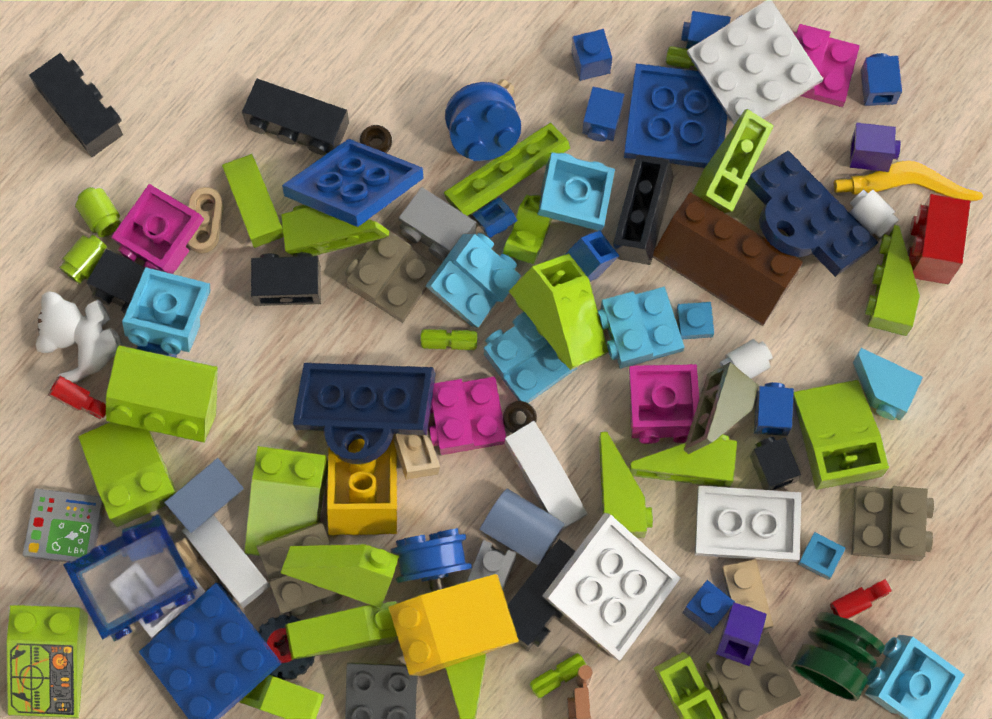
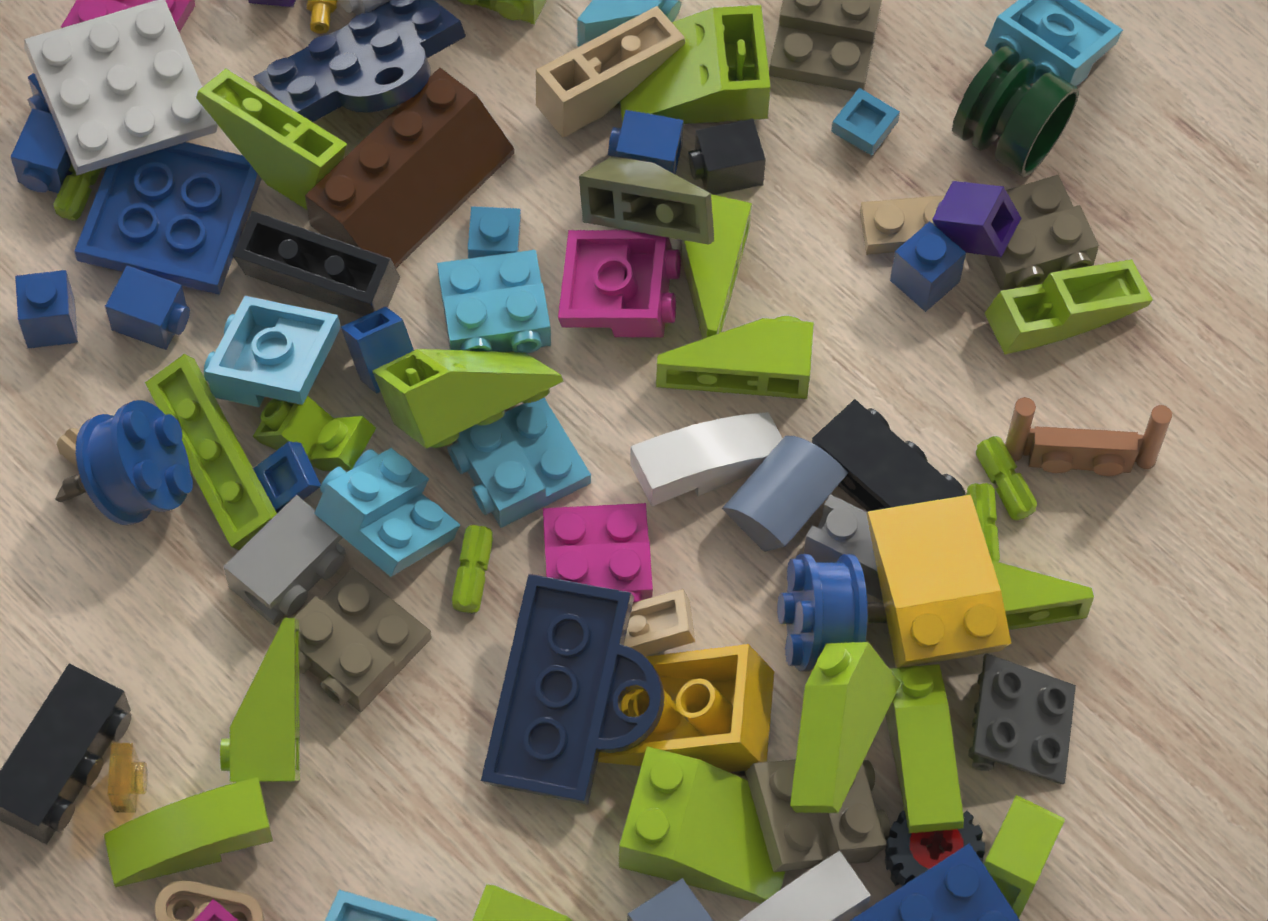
camera: 85 degrees left, 10 degrees down
(284, 157) = (126, 778): none -> clear yellow plate
(286, 280) = (338, 794): black brick -> none
(353, 182) = (202, 658): blue plate -> none
(379, 132) = (117, 627): dark brown plate -> none
(512, 409) = (622, 471): dark brown plate -> none
(513, 663) = (985, 505): none -> lime piece
(611, 586) = (890, 378): white plate -> none
(748, 524) = (809, 205): white plate -> none
(750, 358) = (562, 165): white brick -> none
(826, 372) = (604, 70): none -> tan slope
(859, 600) = (932, 86): red bar -> none

